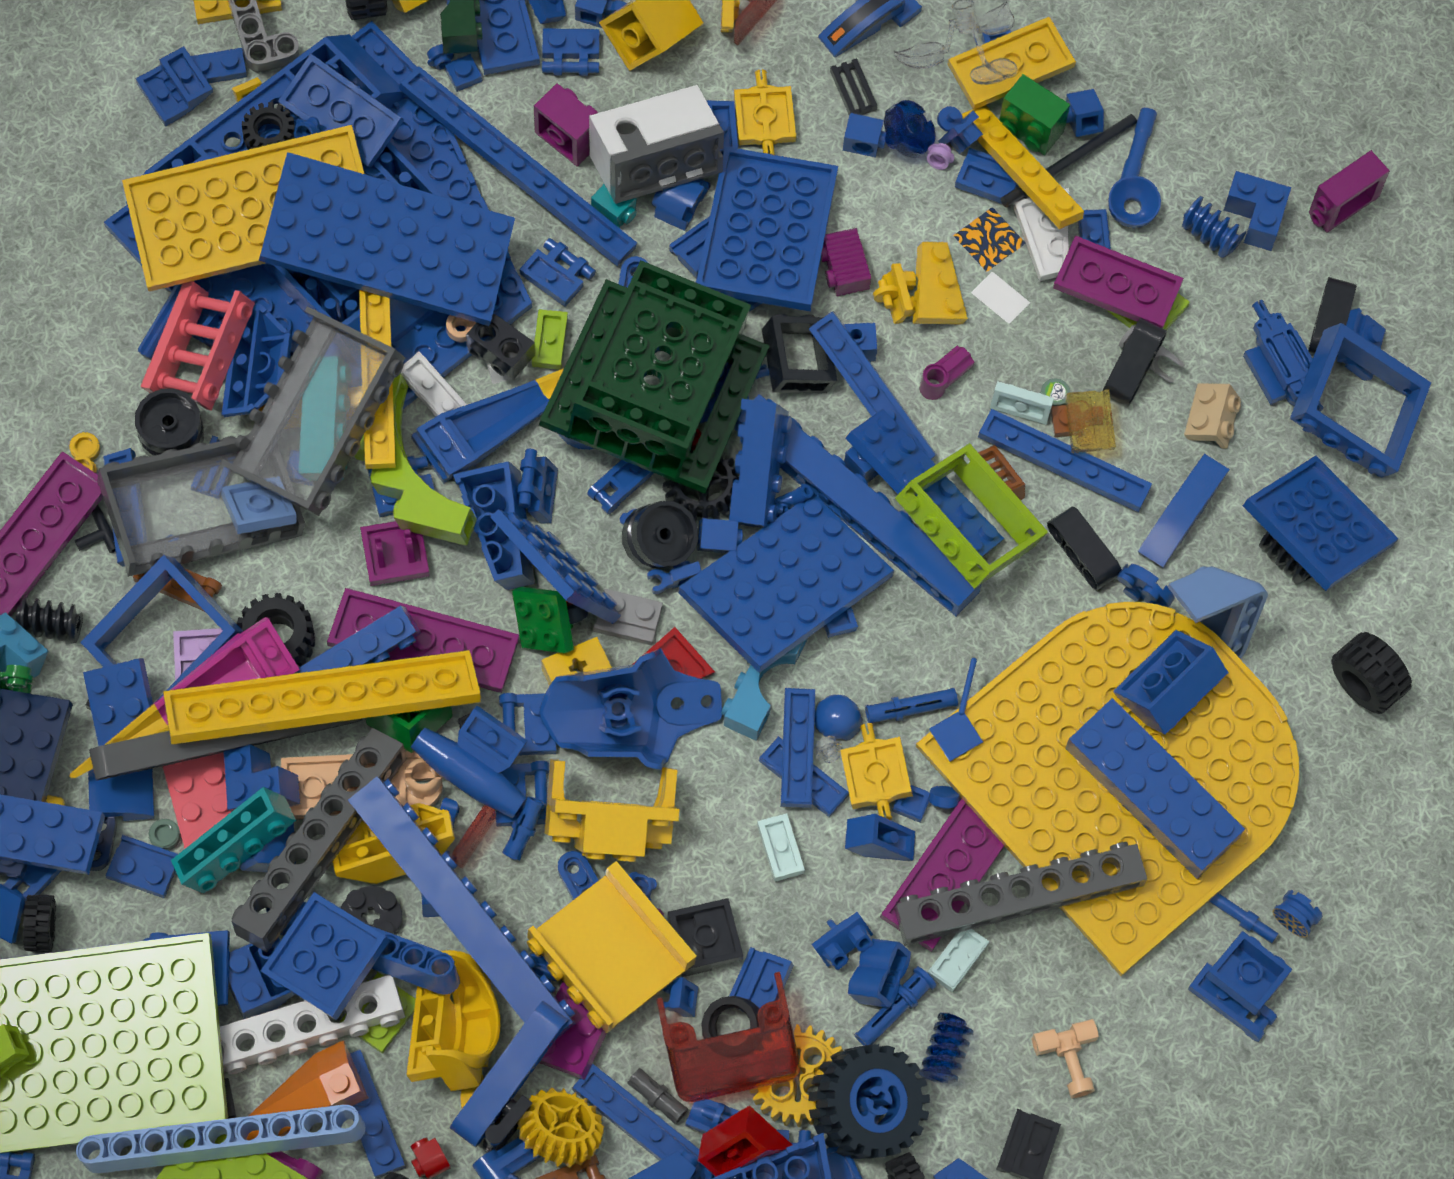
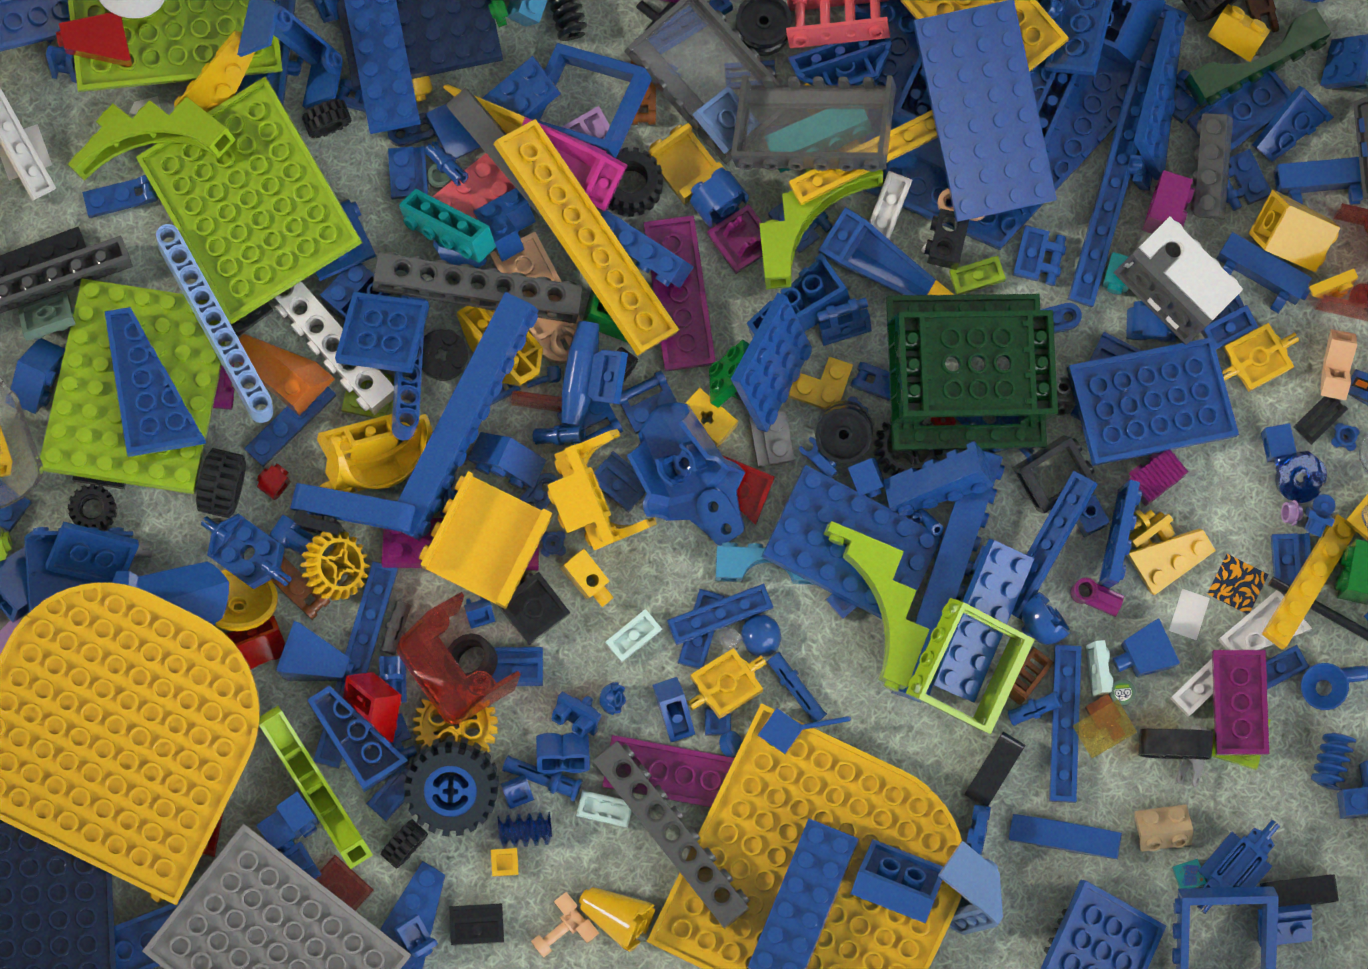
camera: 65 degrees right, 10 degrees up
(157, 817) = (446, 163): none -> blue pin
(283, 569) = (683, 161): none -> yellow panel
(339, 552) = (718, 197): none -> blue brick
(450, 76) = (1159, 104): none -> blue wing
(518, 136) = (1140, 173): none -> blue plate
(527, 891) = (506, 459): none -> blue brick
(546, 63) = (1213, 166): none -> dark grey brick
(601, 538) = (824, 391): none -> yellow plate
(606, 783) = (619, 482): none -> blue plate
(679, 67) = (1265, 270): none -> blue brick
(694, 865) = (577, 571): none -> yellow torso
(803, 46) = (1337, 364): none -> light nougat brick
(827, 559) = (877, 566): none -> lime arch
(840, 897) = (612, 698): none -> blue plate
(889, 69) = (1351, 432): none -> blue plate
(893, 319) = (1118, 543): none -> blue plate
(901, 1038) = (517, 791): none -> blue tile
(949, 432) = (1043, 621): none -> blue cylinder
(972, 1087) = (504, 862): none -> yellow plate
(1023, 349) = (1147, 651): none -> blue torso
(1037, 480) = (1034, 708): none -> blue pin
(1081, 991) = (618, 915): none -> yellow cone
(1083, 321) = (1195, 691): none -> white plate
(1271, 414) = (1188, 875): none -> tile

